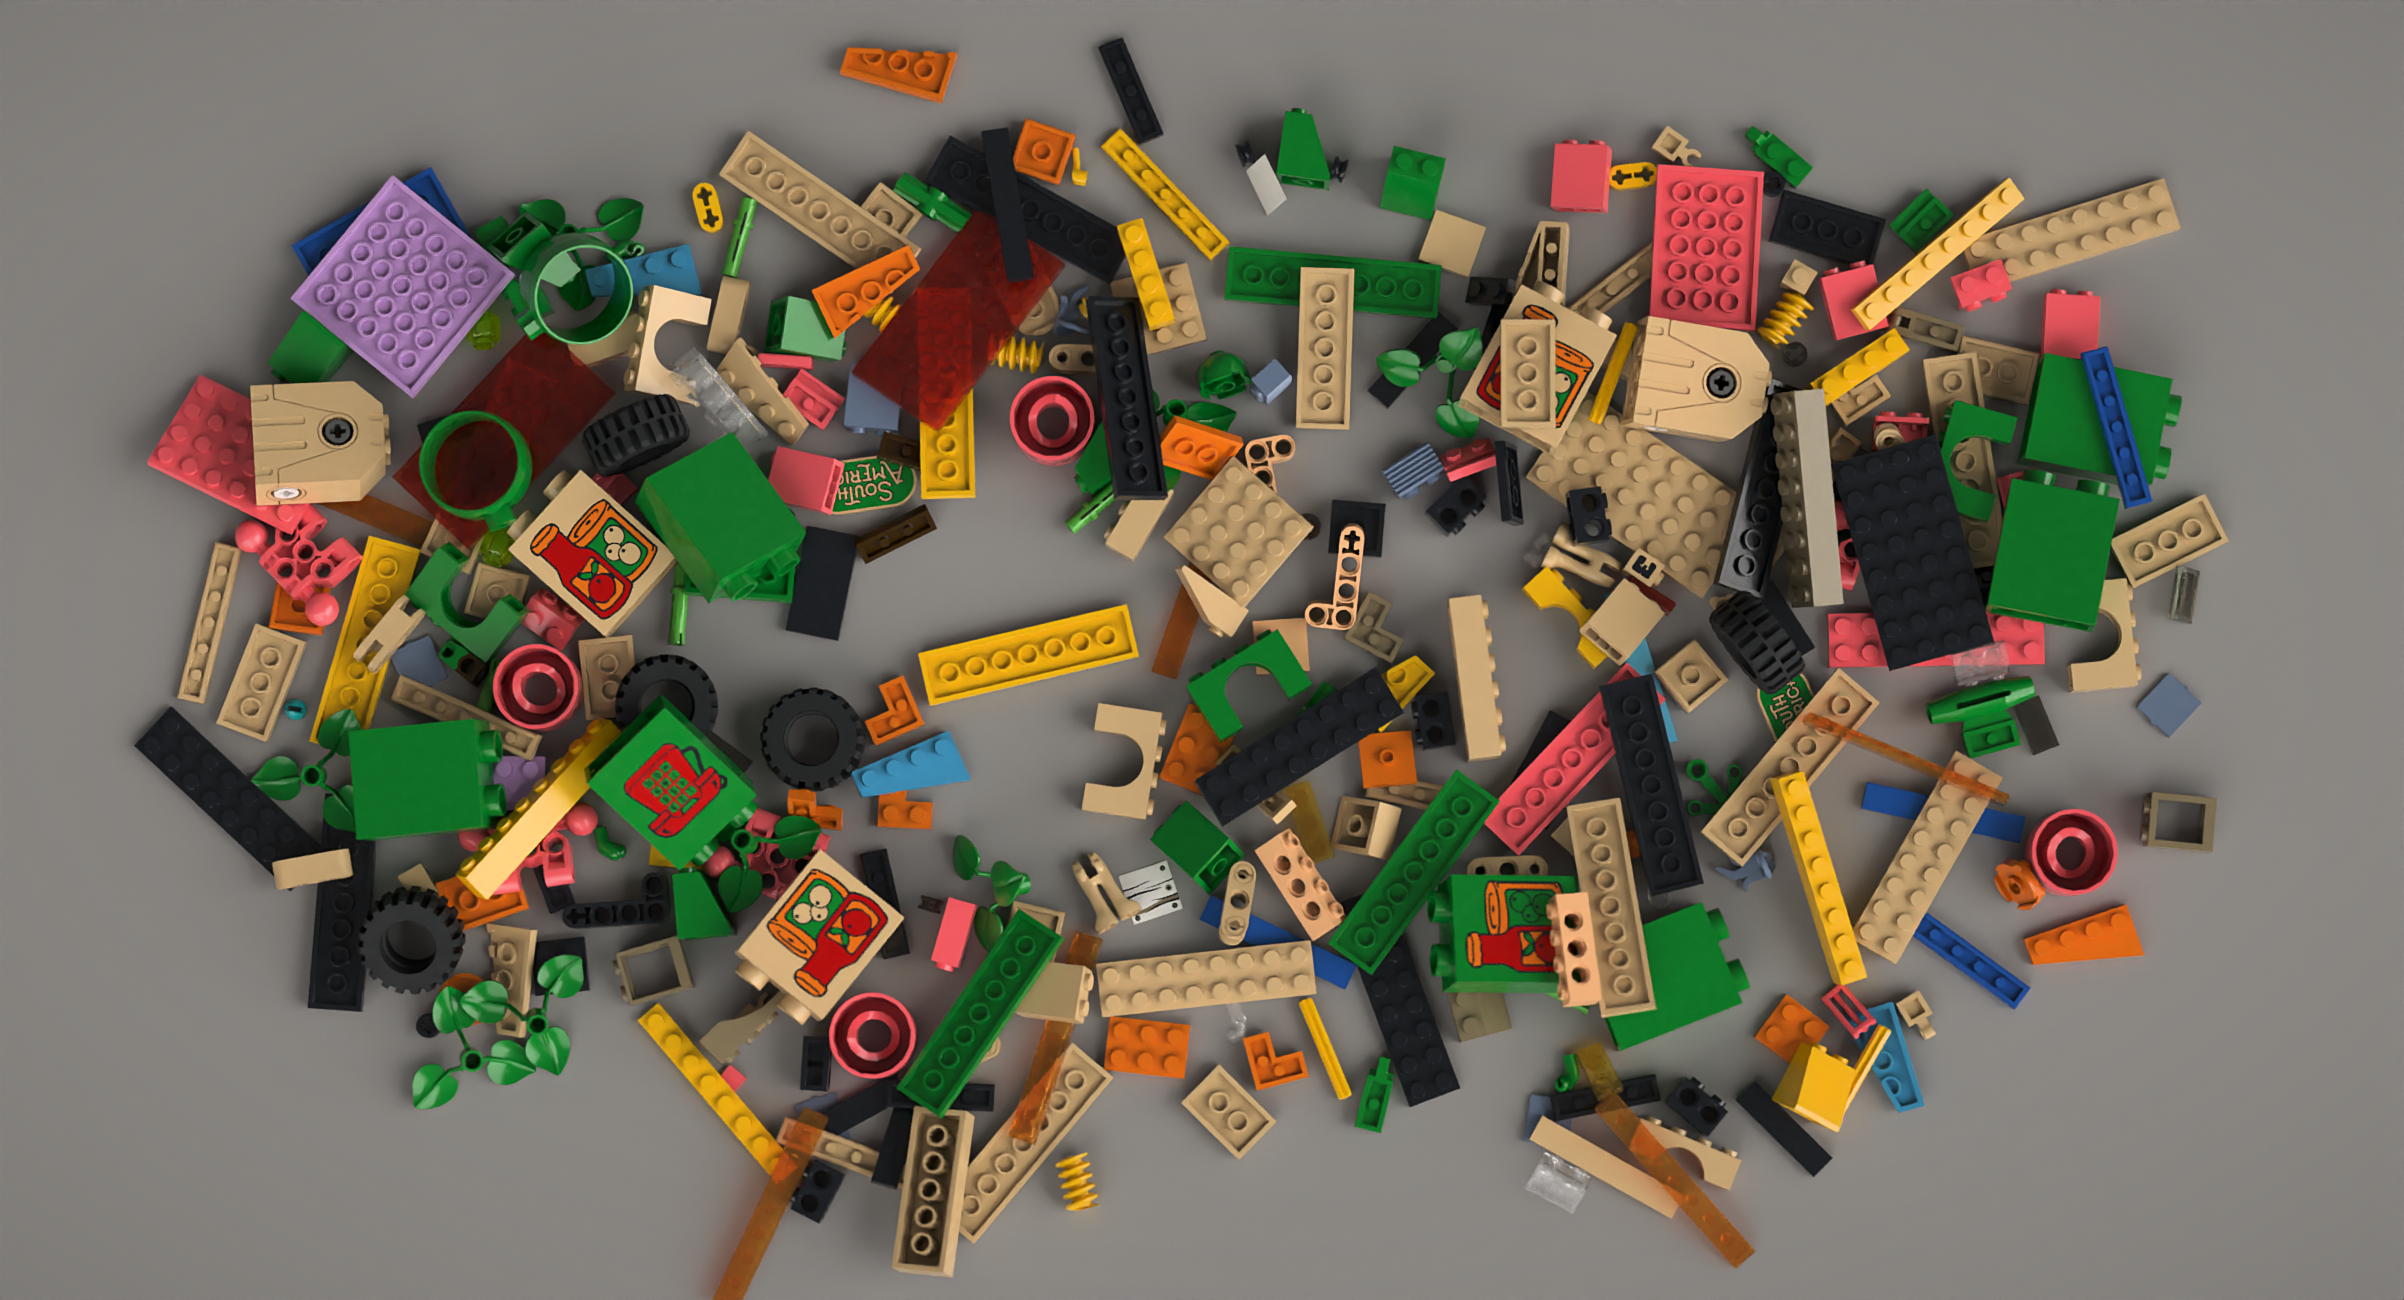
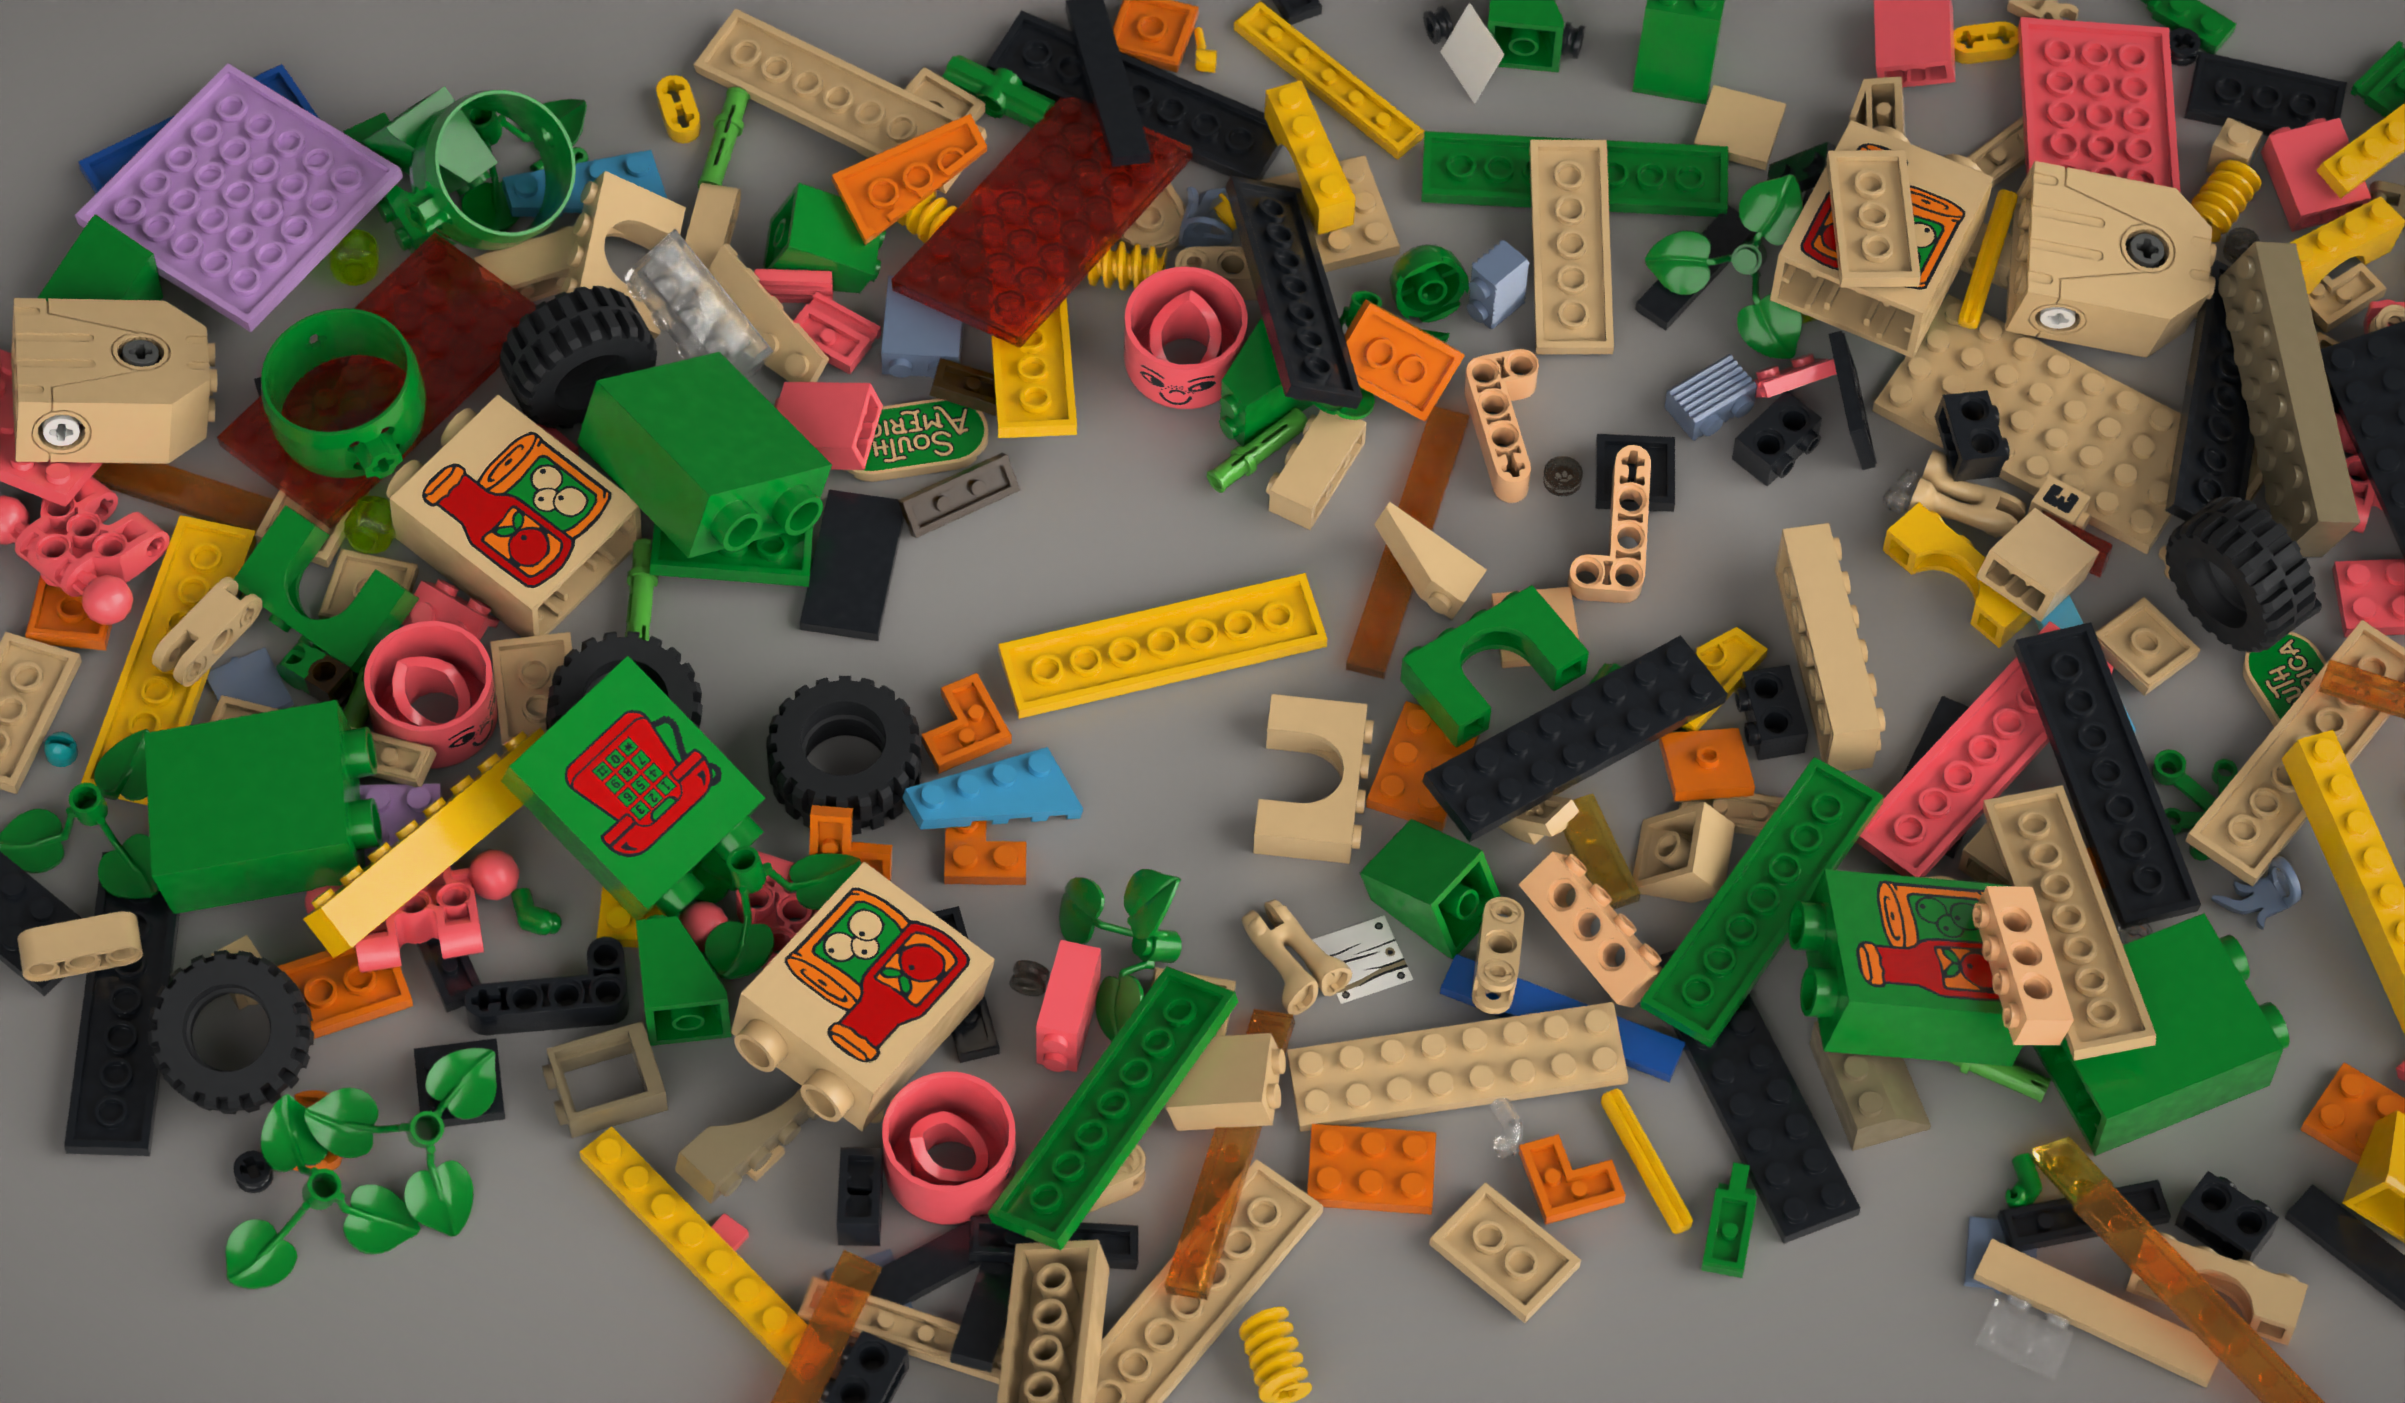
camera: 10 degrees left, 25 degrees down
(513, 967) = (387, 1069): tan wing -> none
(1238, 532) = (1466, 468): tan plate -> none
(1367, 629) = (1663, 600): dark tan plate -> none

